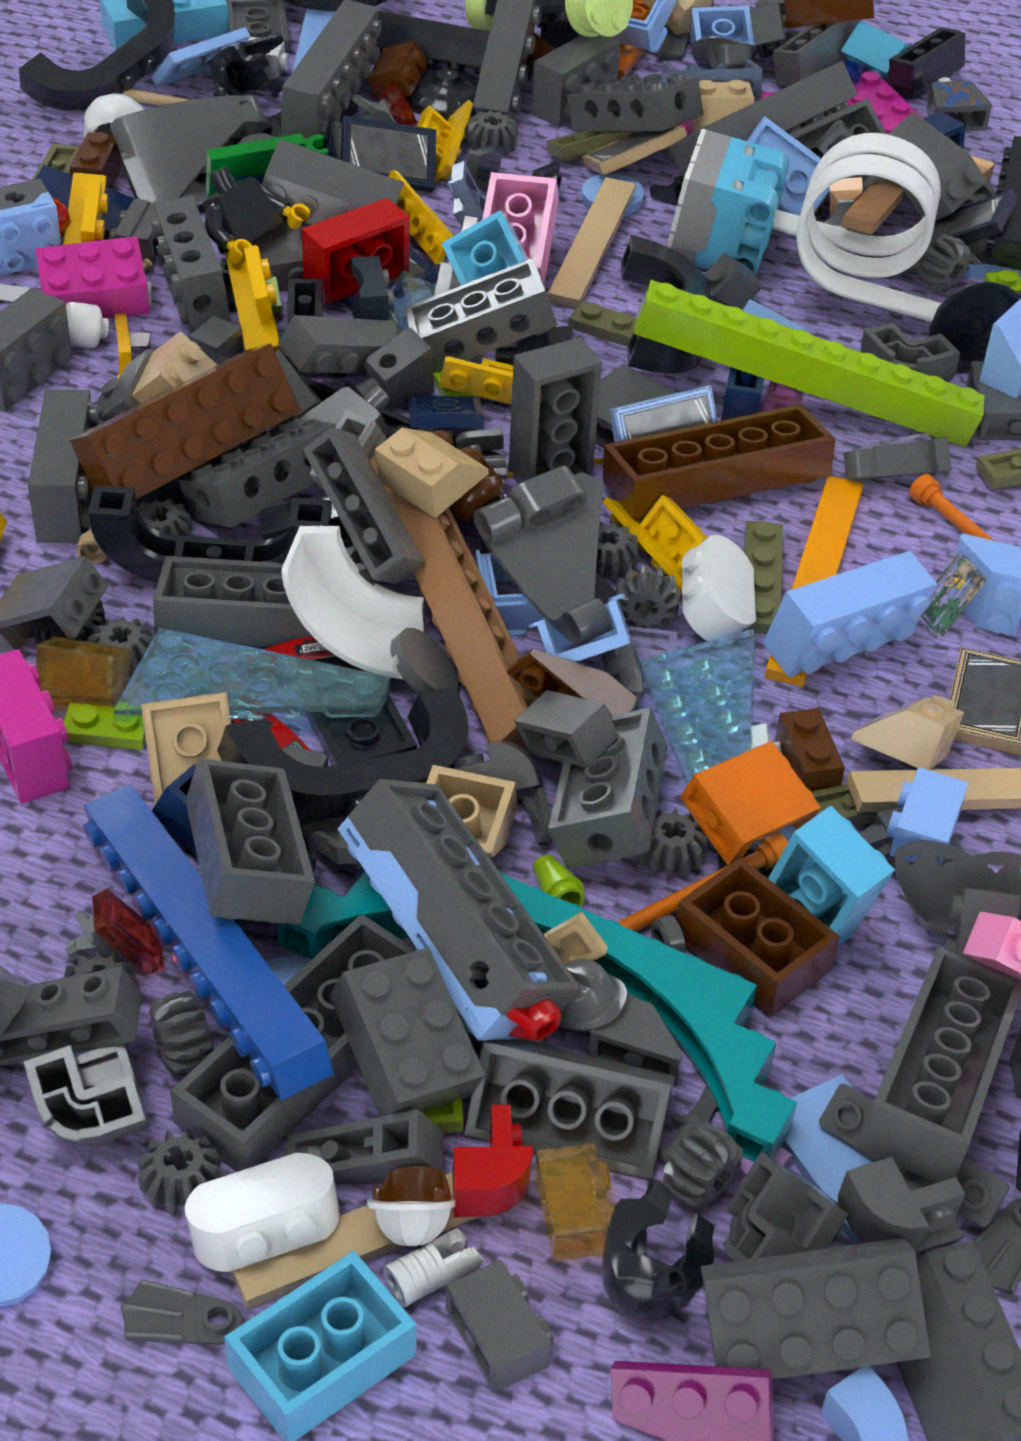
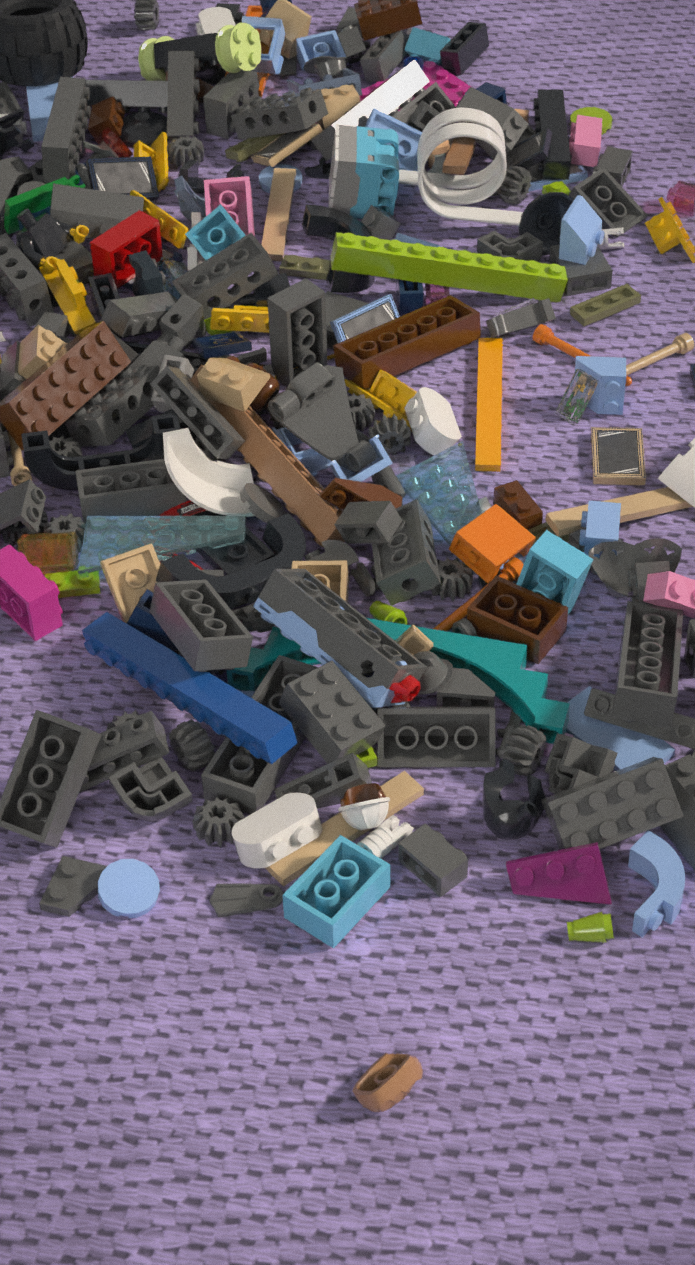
camera: 10 degrees left, 0 degrees up
(117, 929) = (128, 698): clear red piece -> none
(492, 1177) = (404, 781): red brick -> none
(574, 1200) = (455, 786): clear yellow brick -> none
(764, 549) = (452, 390): olive plate -> none
(849, 613) = (519, 419): light blue brick -> none
(896, 1206) = (639, 742): dark grey brick -> none
(914, 733) = (578, 483): tan slope -> none
(961, 101) = (494, 71): dark grey torso -> none

